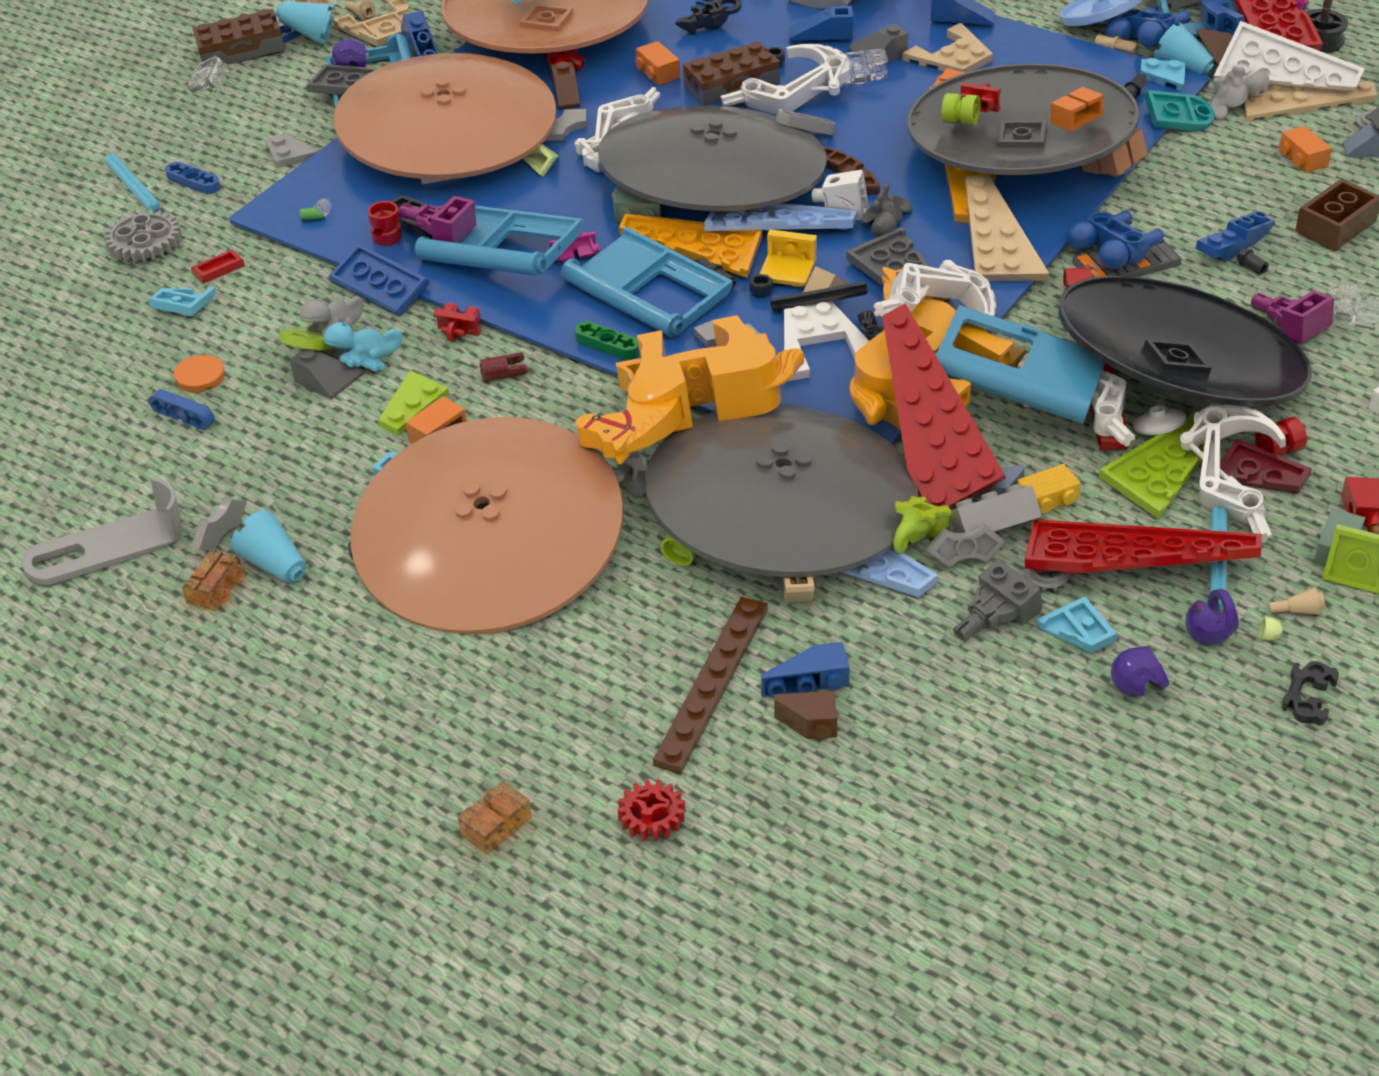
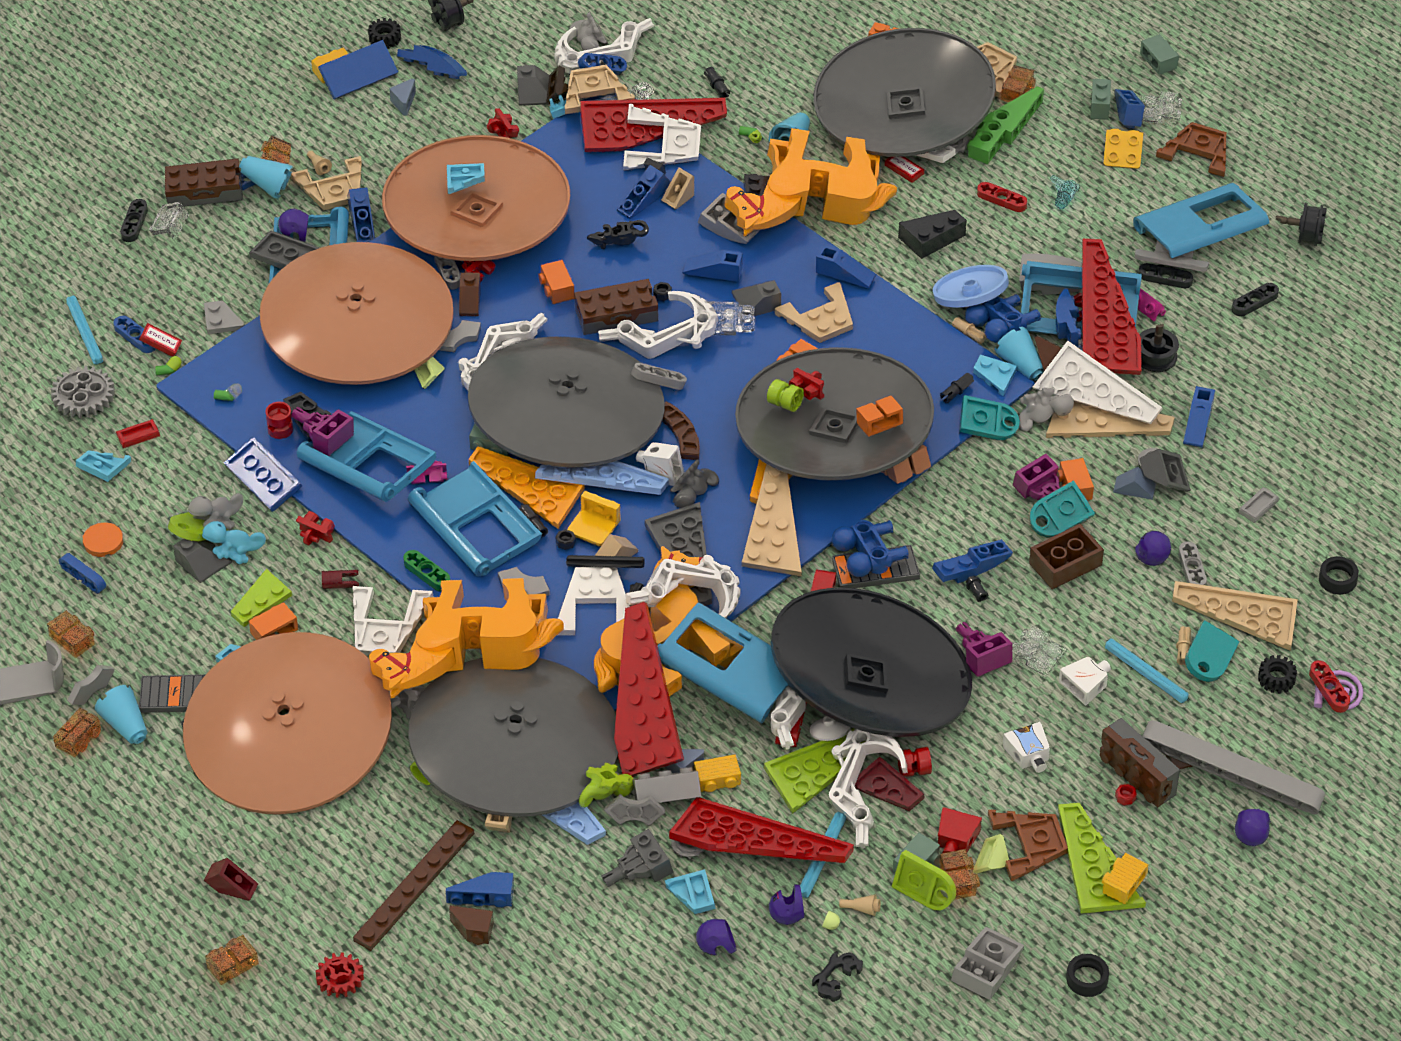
camera: 10 degrees right, 5 degrees up
(167, 83) = (132, 214): none -> black beam
(183, 473) = (71, 633): none -> clear orange piece
(223, 176) = (160, 339): none -> tile
(243, 197) = (170, 367): none -> arm
(321, 518) = (167, 692): none -> tile
(464, 717) = (230, 880): none -> dark red slope
(528, 62) = (445, 273): none -> light grey beam
(567, 410) = (384, 634): none -> white wing
(1269, 155) = (1037, 478): none -> magenta brick
(1307, 175) = (1061, 510): none -> teal tile

